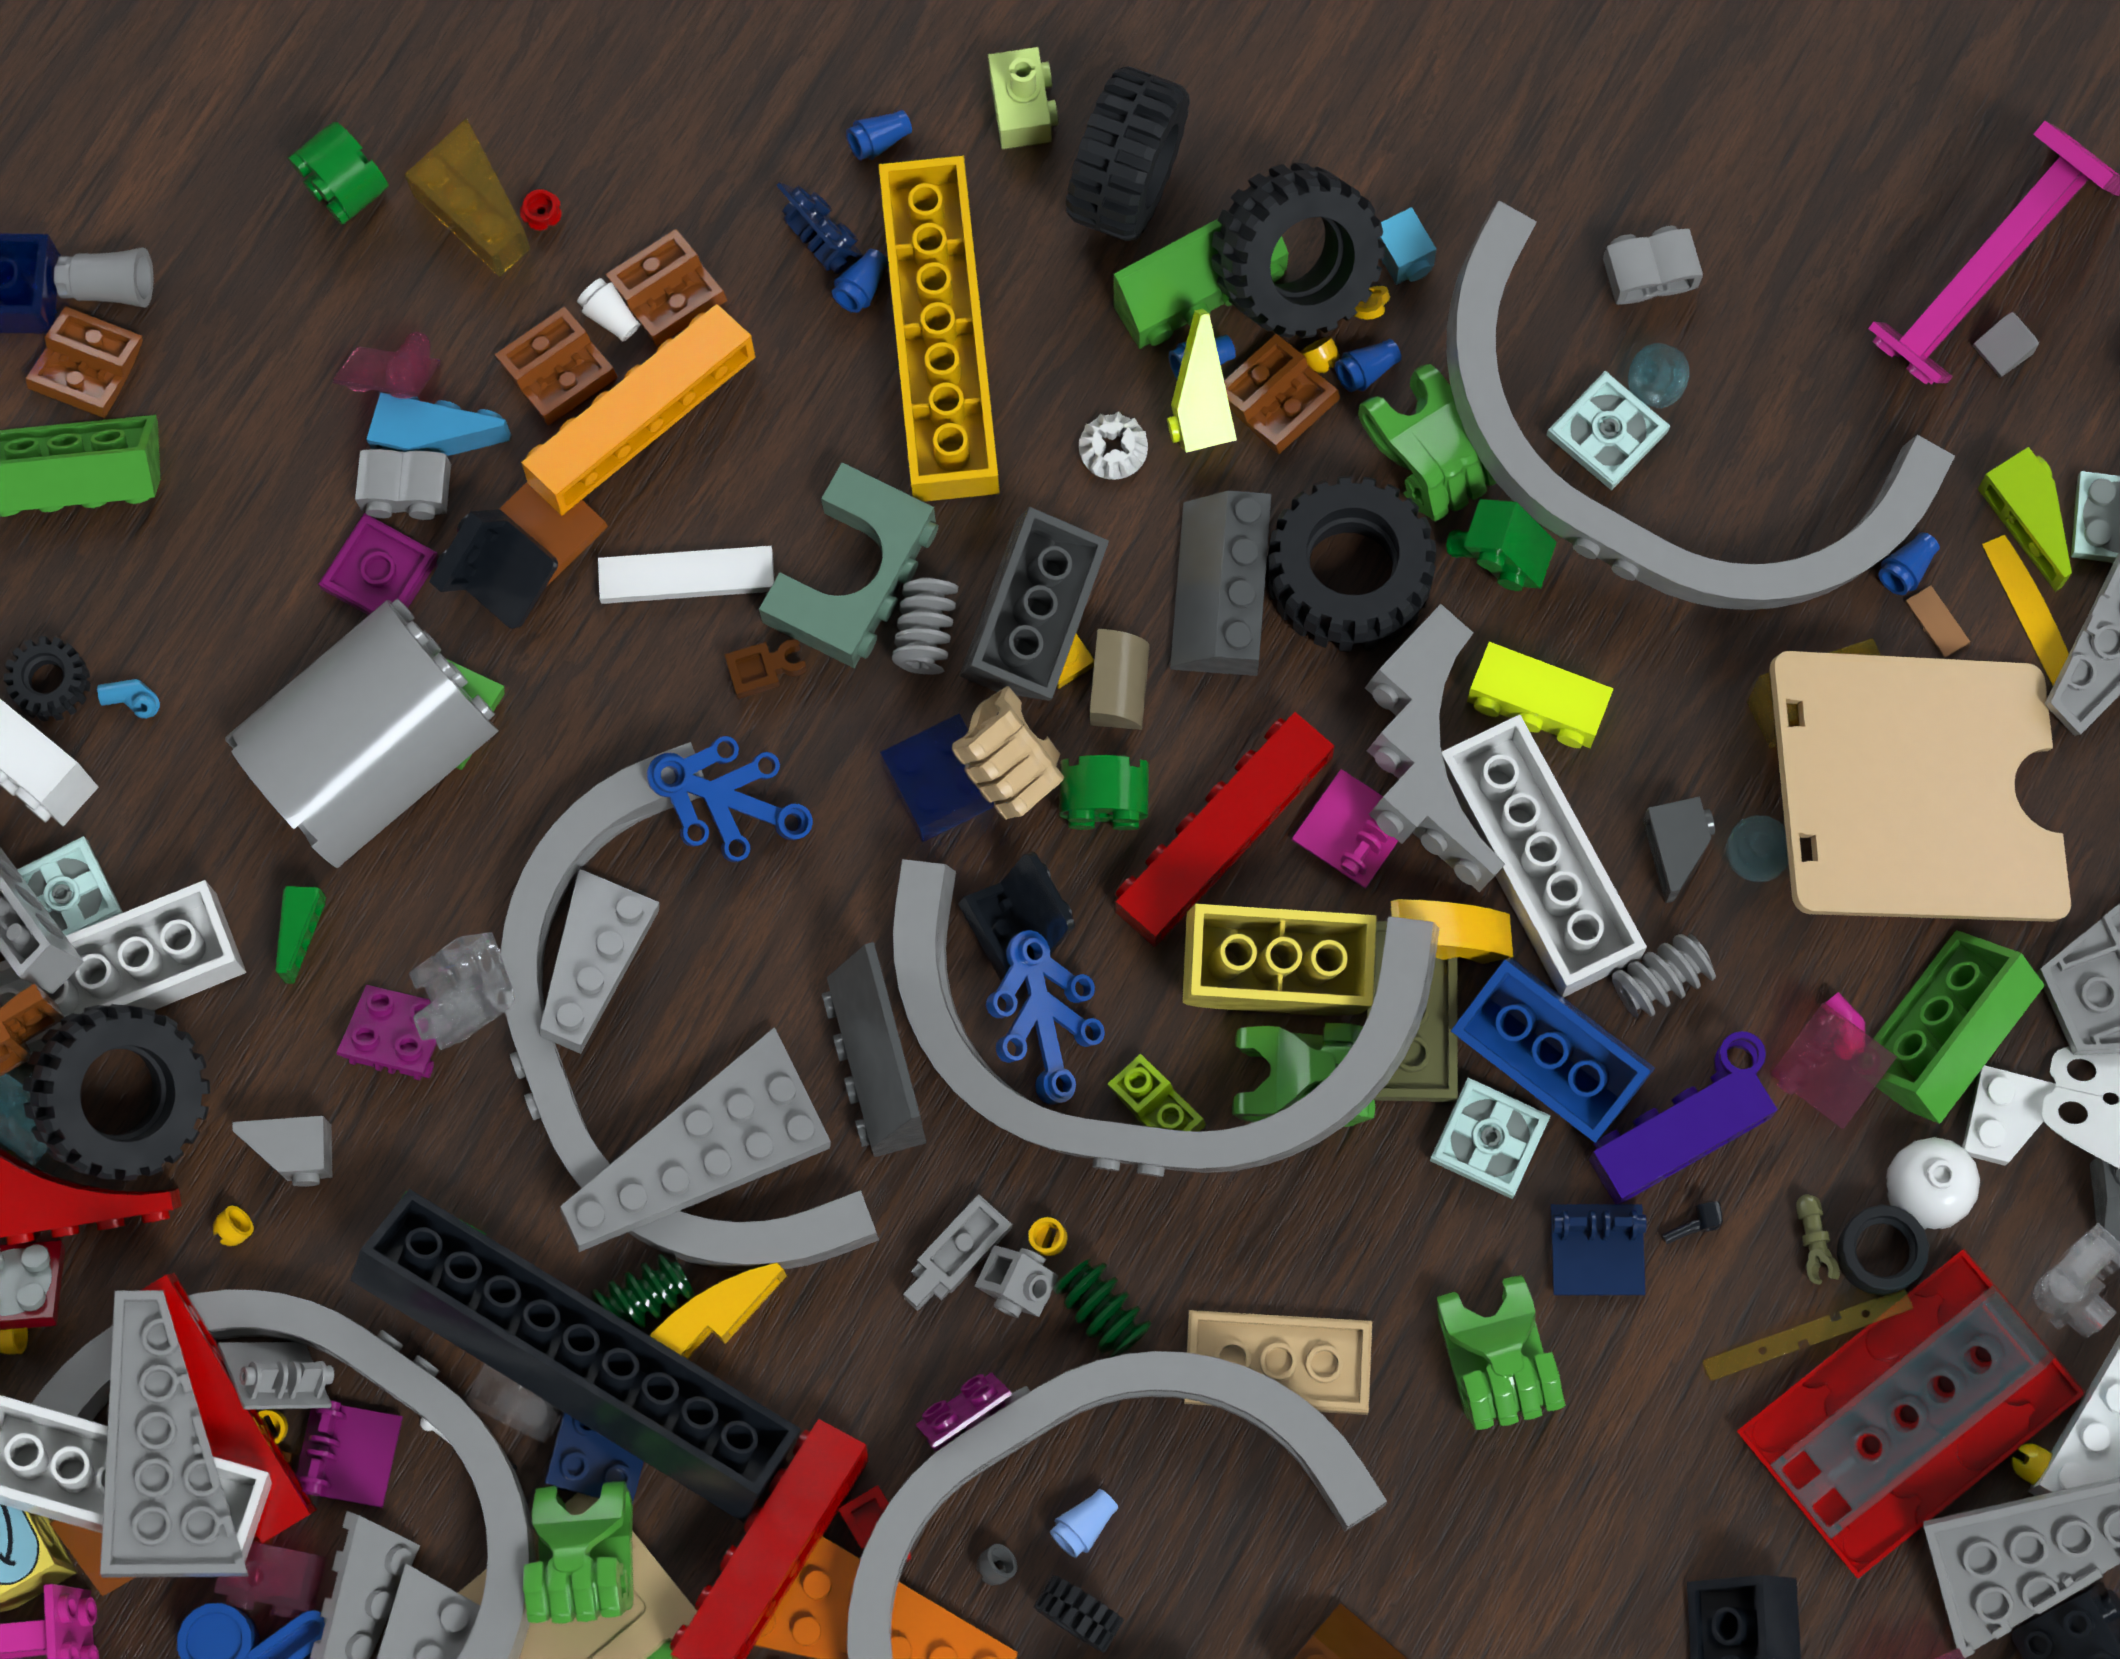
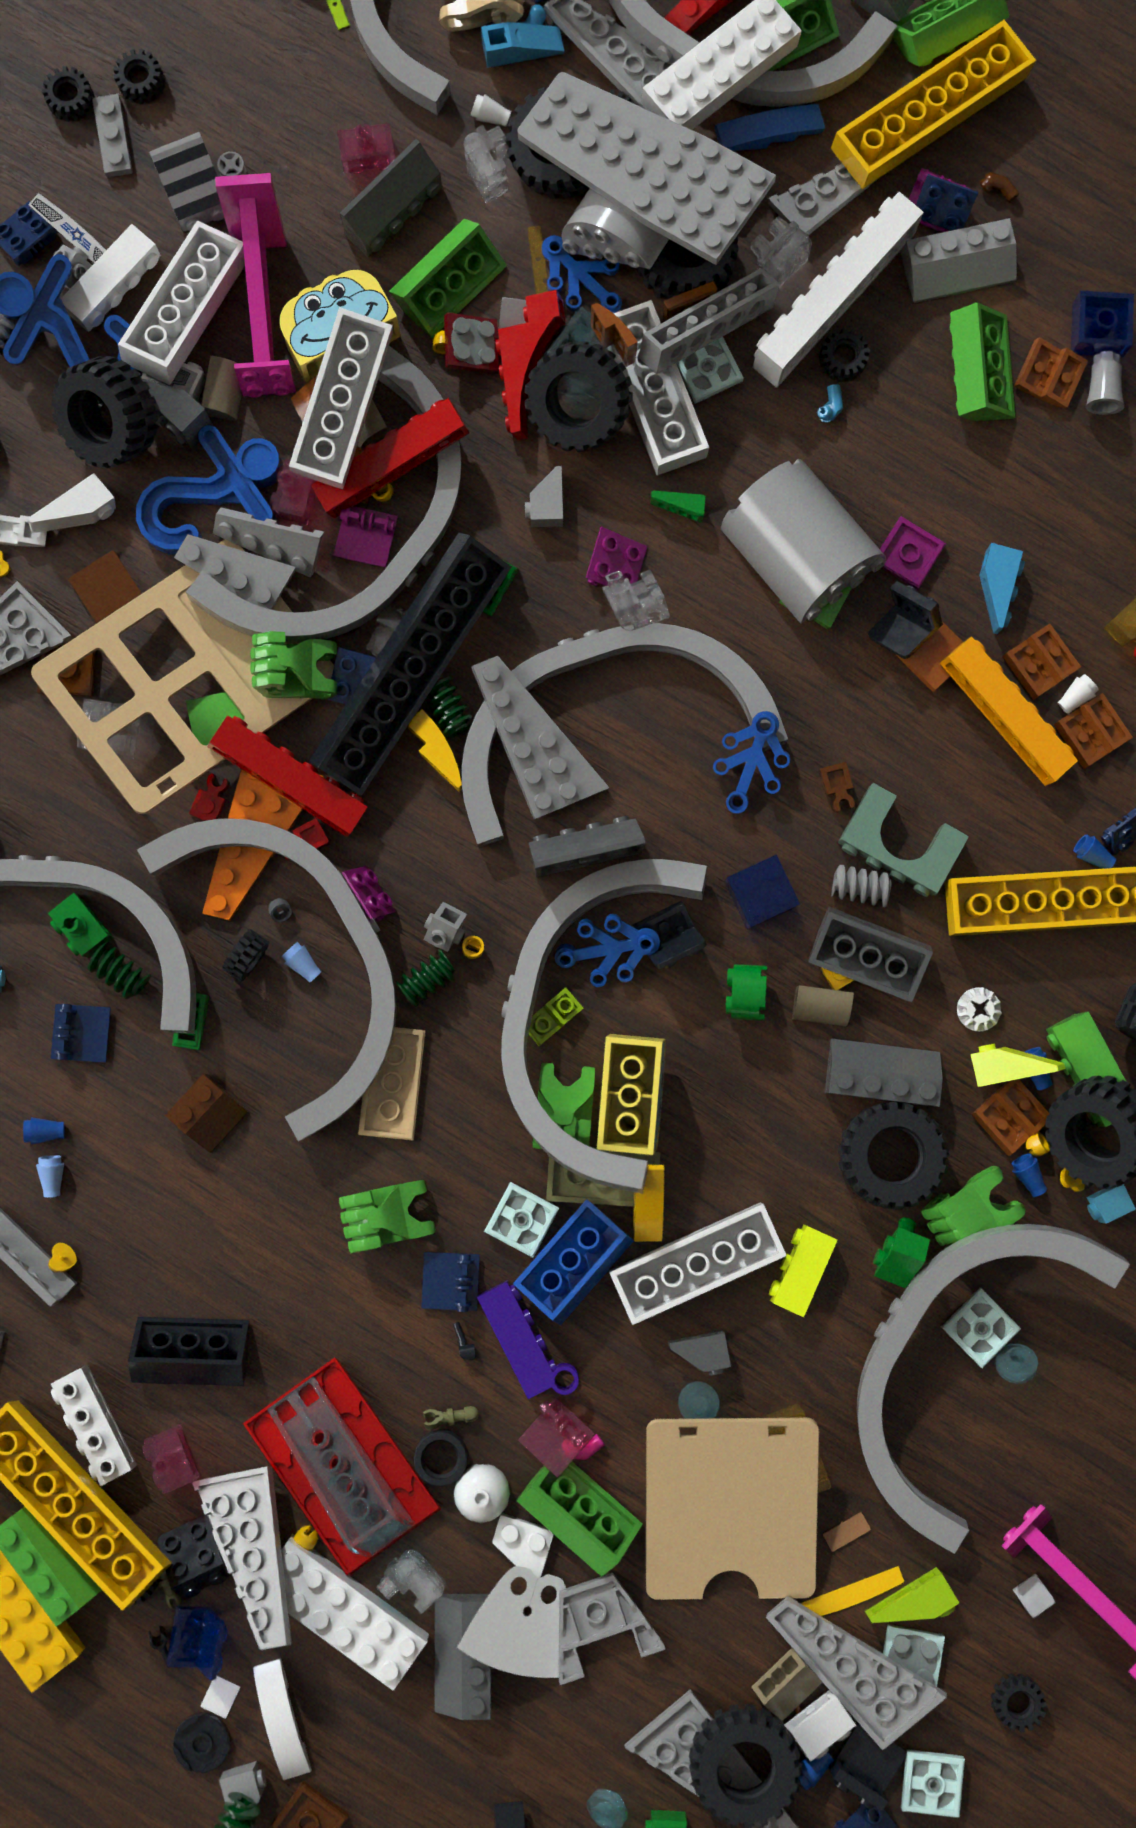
camera: 85 degrees right, 10 degrees up
(161, 1480) = (340, 420): light grey wing -> none
(233, 1226) = (504, 474): yellow hinge -> none
(276, 1375) = (408, 491): light grey hinge -> none
(398, 372) = (1038, 557): clear pink hinge -> none
(403, 483) = (964, 566): light grey brick -> none
(594, 953) = (656, 679): light grey wing -> none
(685, 574) = (900, 740): white tile -> none
(956, 1252) = (466, 893): light grey hinge -> none
(1007, 757) = (767, 931): tan piece -> none
(1224, 827) = (724, 1067): red brick -> none
(1344, 832) = (722, 1147): dark pink hinge -> none
(1410, 749) = (768, 1184): light grey arch -> none
(1652, 265) = (1094, 1365): light grey brick -> none
(1663, 974) = (618, 1335): light grey piece -> none
(1813, 1331) = (393, 1411): clear yellow piece -> none
(1907, 566) = (883, 1516): blue cone -> none

